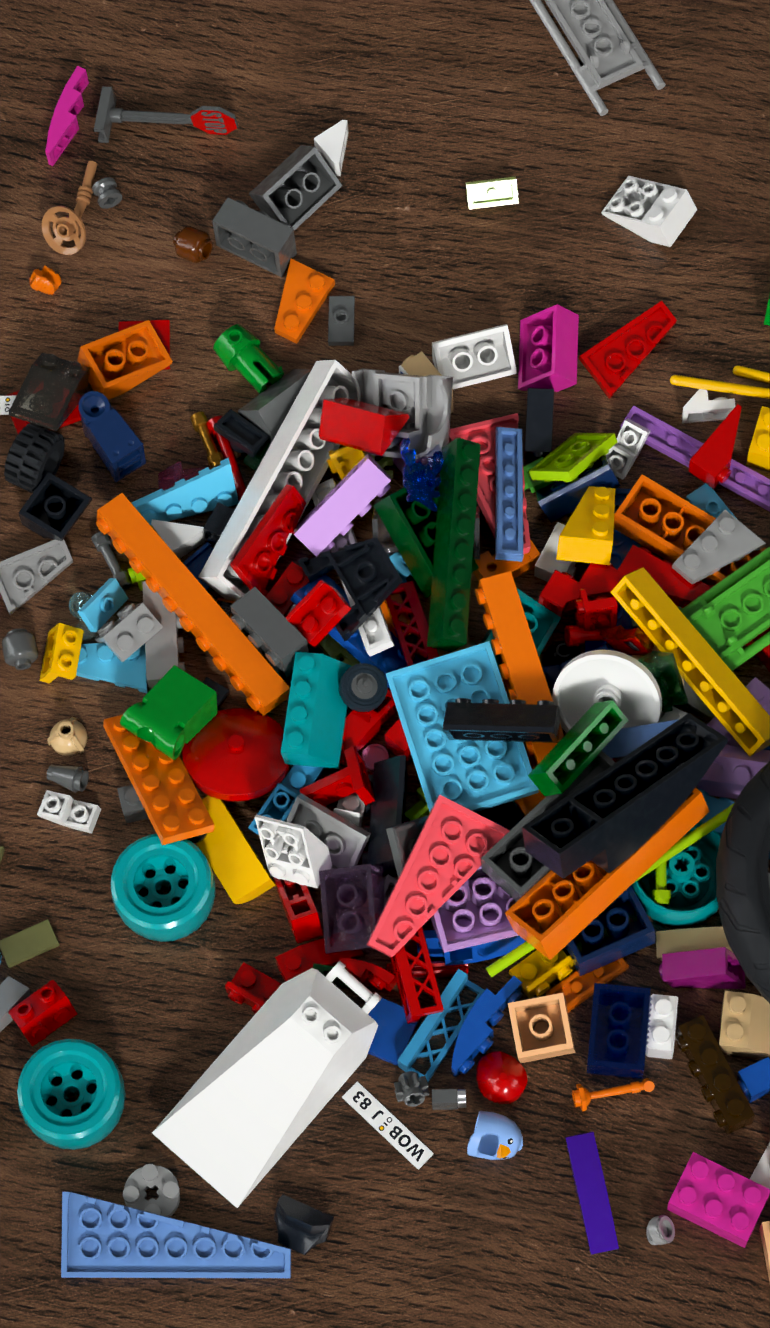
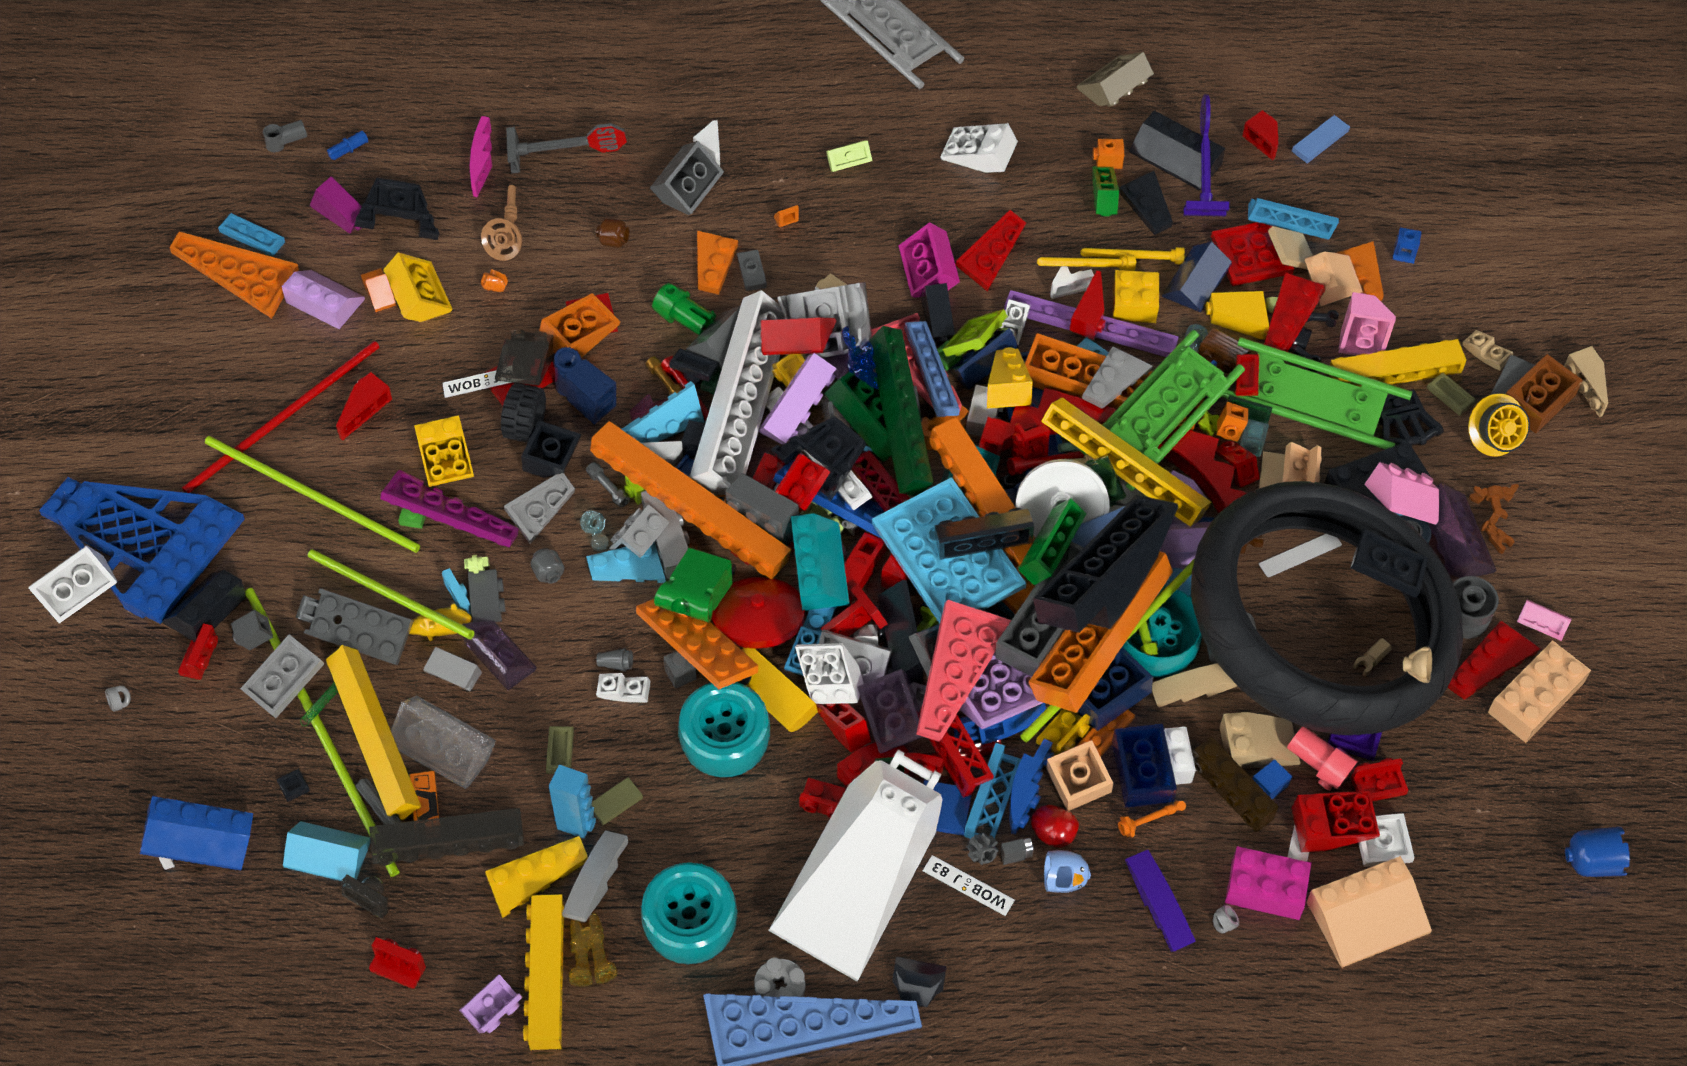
camera: 20 degrees left, 10 degrees down
(42, 1012) = (645, 853): red bracket -> none
(61, 653) = (584, 562): yellow bracket -> none
(70, 743) = (606, 633): tan piece -> none
(103, 605) = (610, 517): medium azure plate -> none
(107, 193) = (530, 207): dark grey wheel -> none
(254, 236) = (664, 217): dark grey brick -> none
(261, 551) = (742, 437): red wing -> none
(363, 687) = (854, 535): black wheel -> none
(373, 754) = (873, 591): bright pink piece -> none
(399, 259) = (787, 216): none -> orange slope
(475, 356) = (878, 269): white slope -> none
(628, 642) = (1069, 452): clear red slope -> none
(702, 969) = (1197, 703): magenta slope -> none

